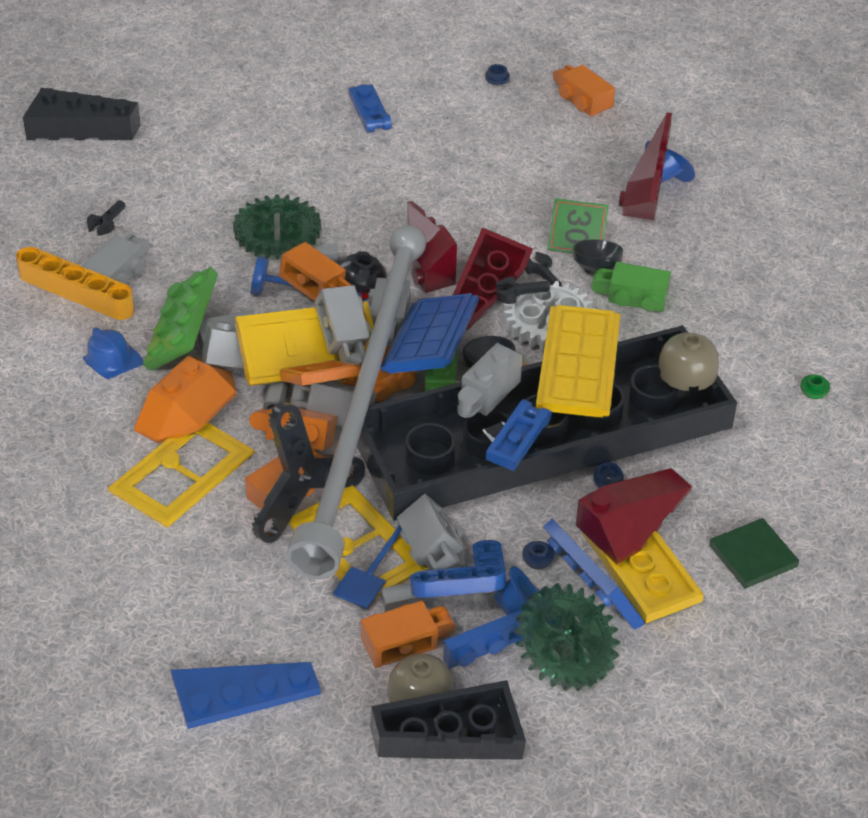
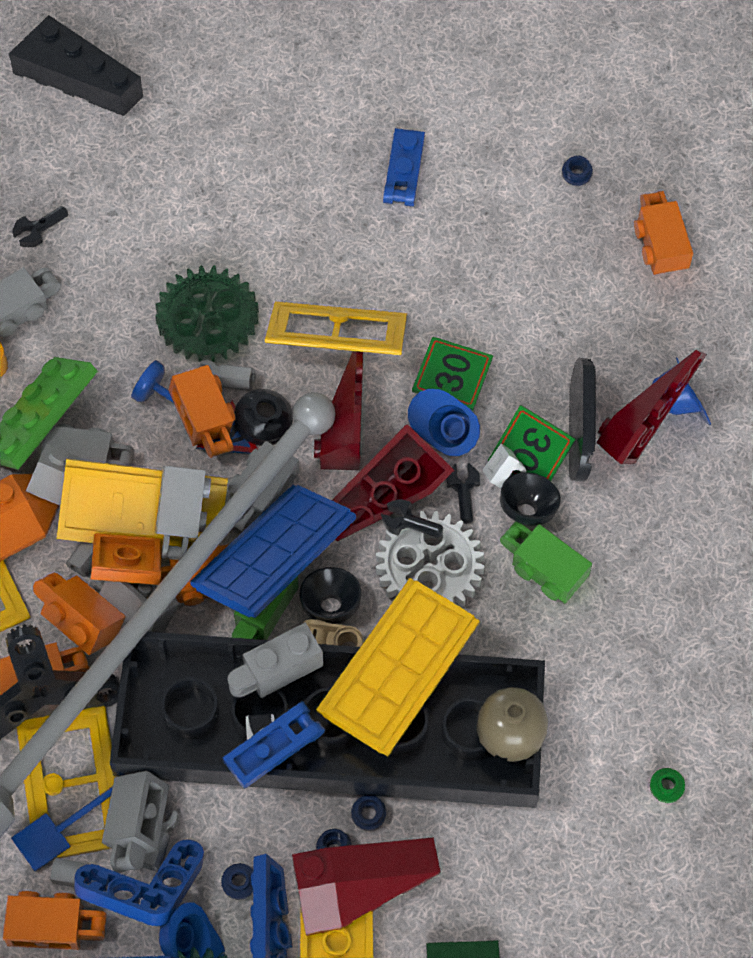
camera: 25 degrees right, 20 degrees up
(384, 200) = (280, 315): none -> yellow door
(489, 204) = (453, 370): none -> green piece
(506, 222) = (444, 422): none -> blue piece
(563, 242) = (502, 465): none -> white tile
(598, 185) = (582, 418): none -> black tile

